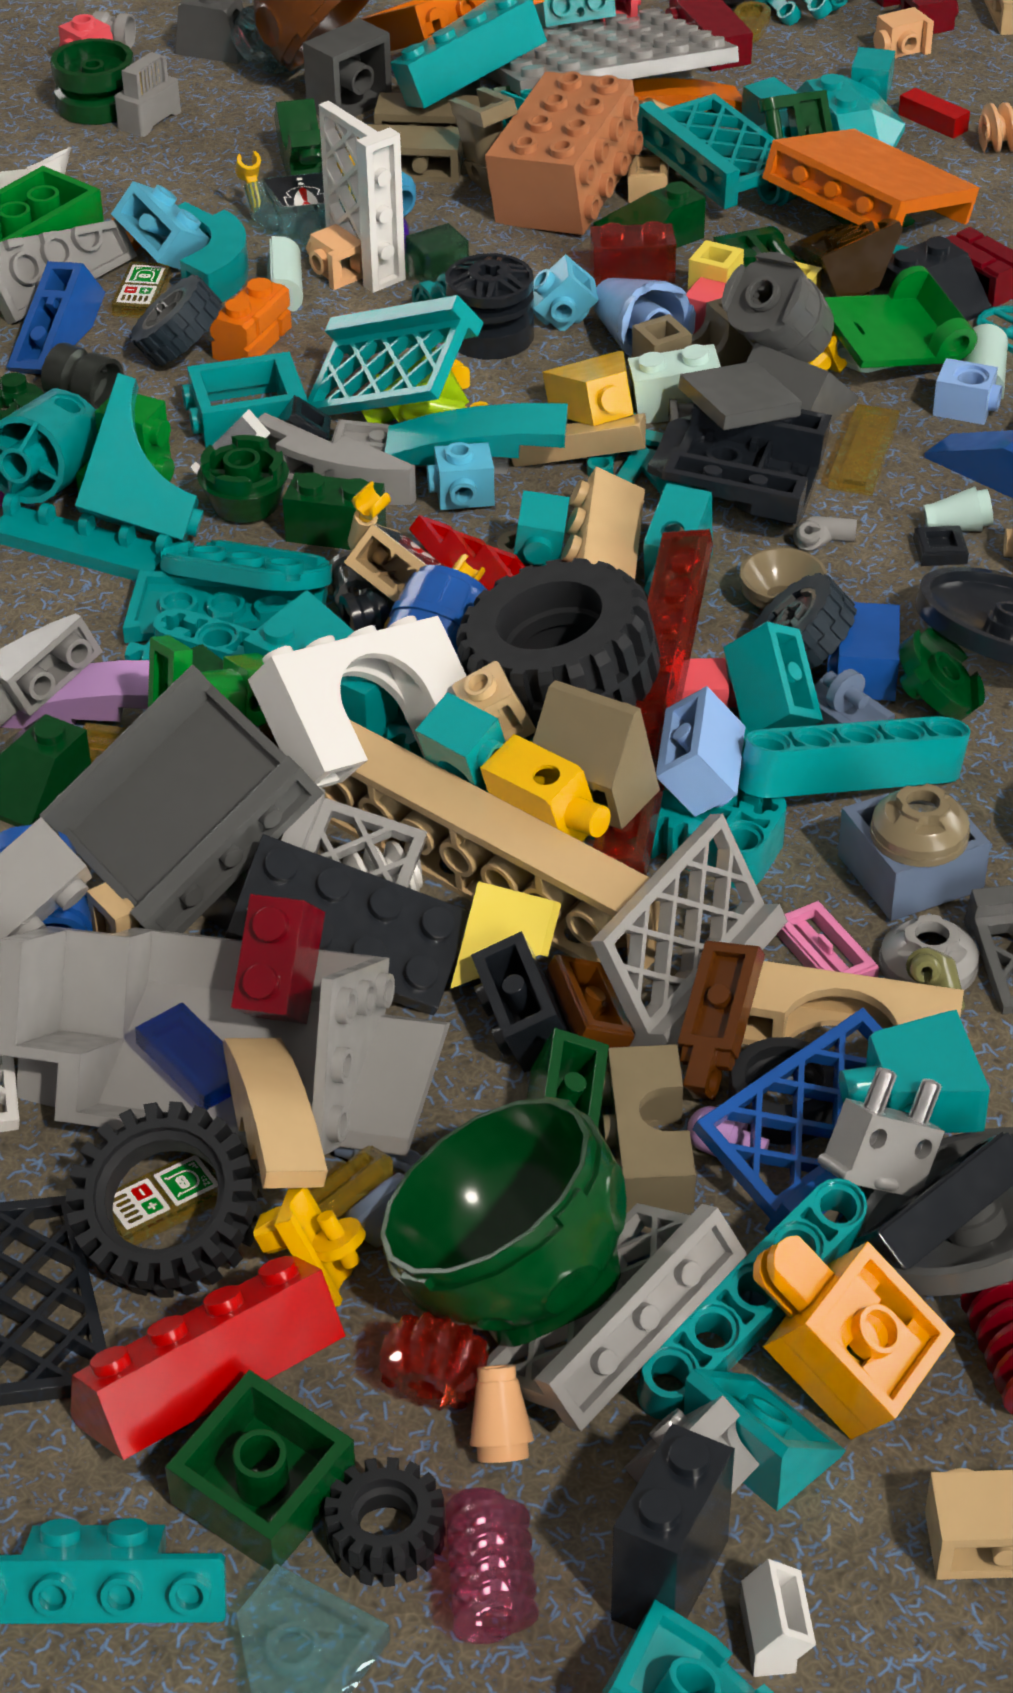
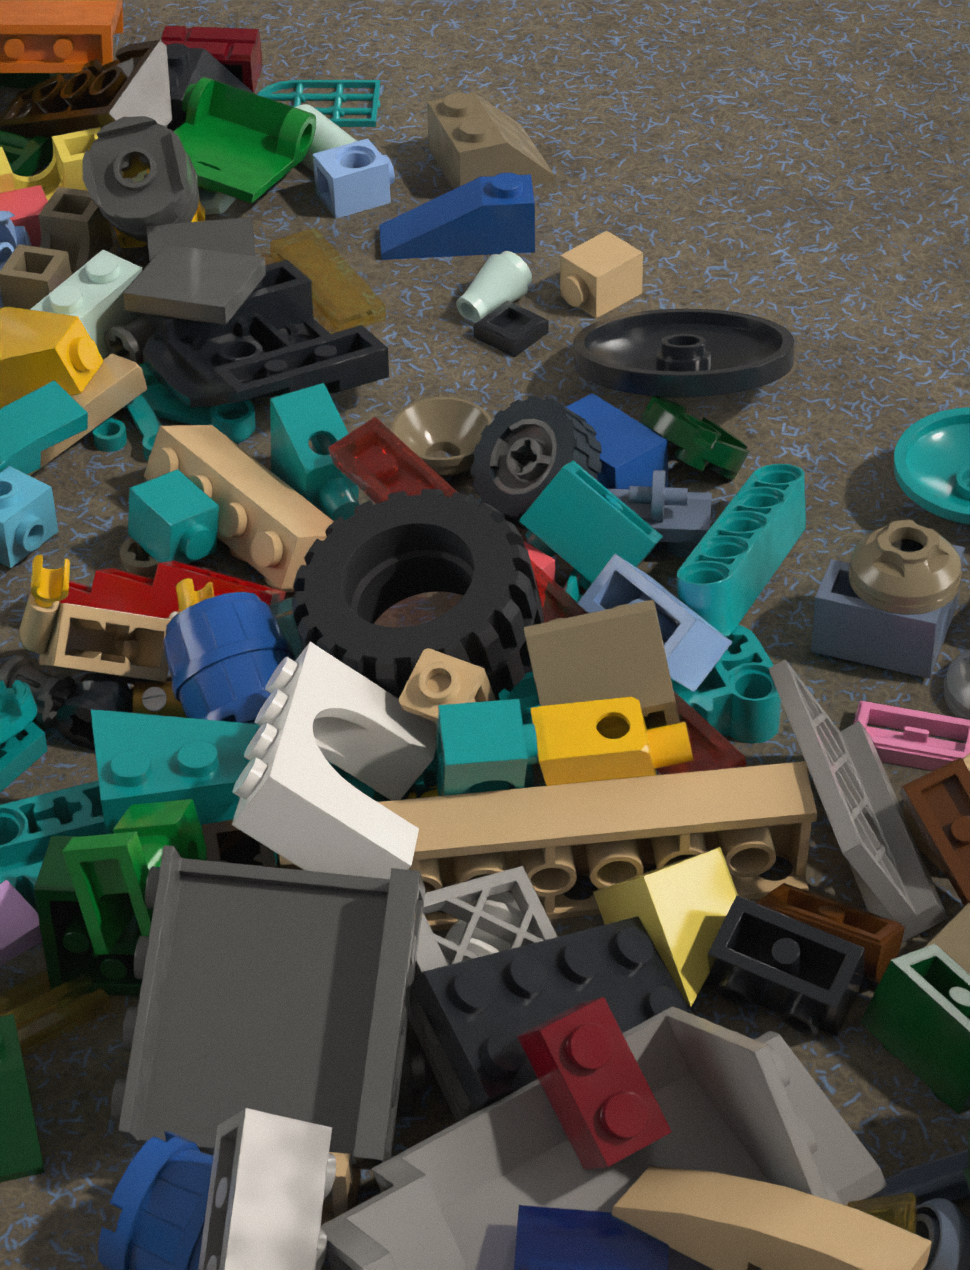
camera: 45 degrees left, 0 degrees up
(820, 530) = (401, 370): light grey arm -> none

